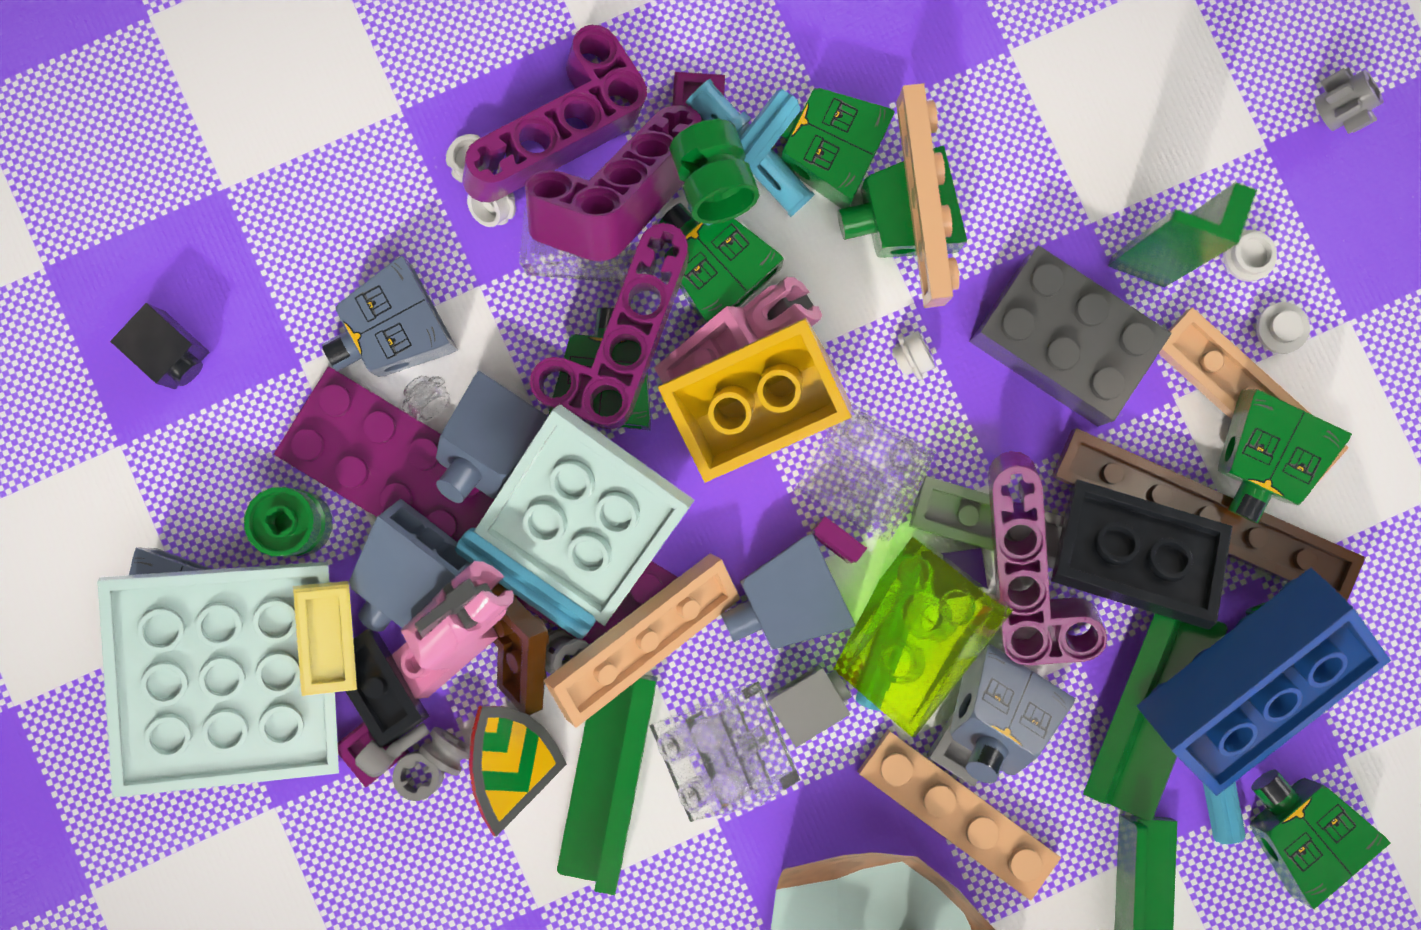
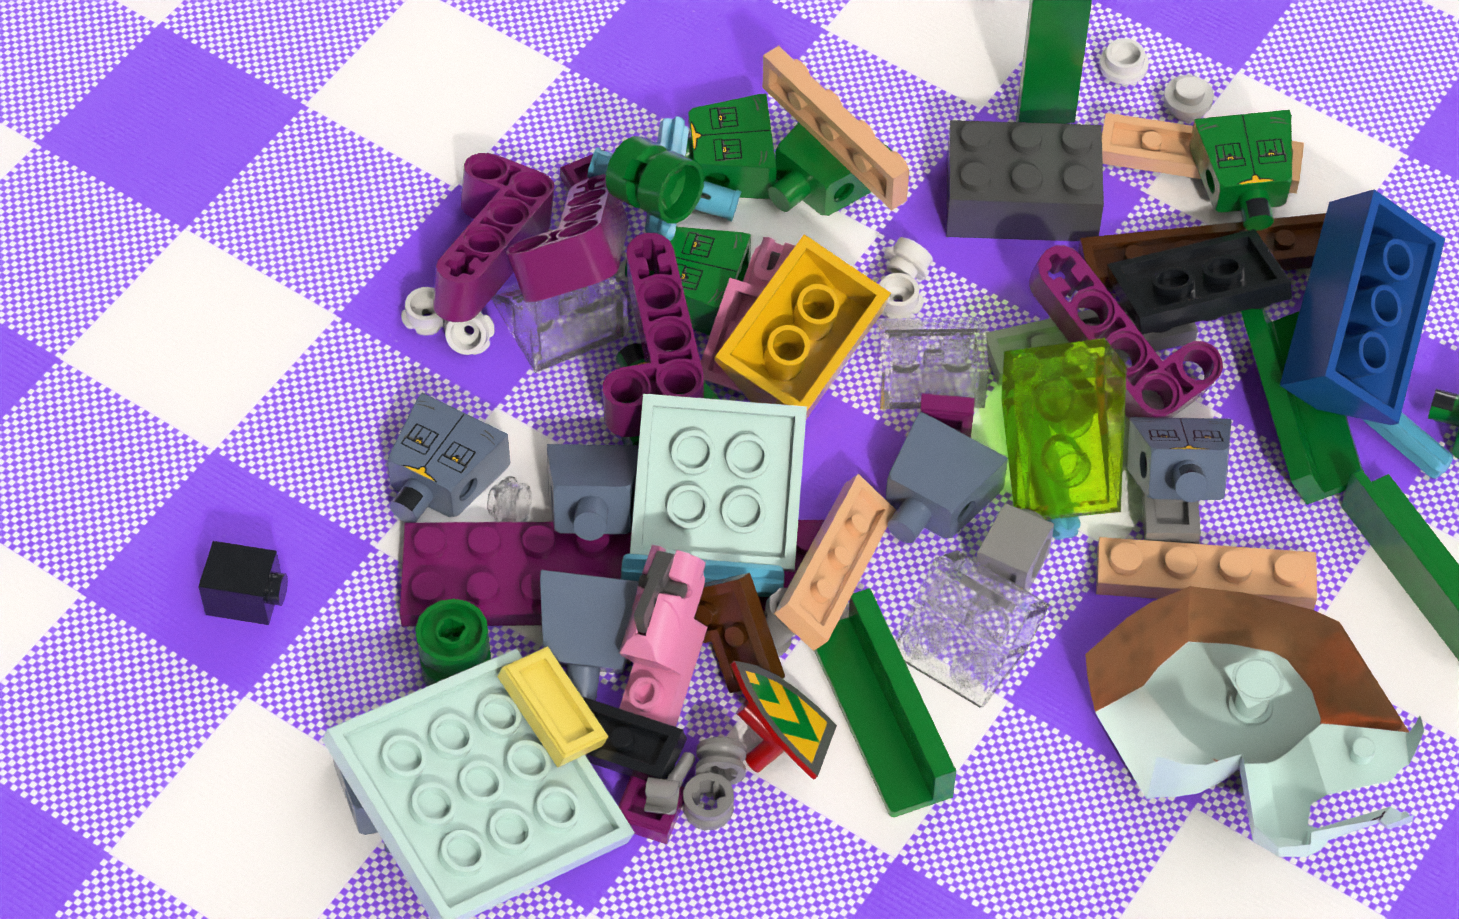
camera: 30 degrees left, 30 degrees down
(894, 386) = (903, 288): none -> white plate

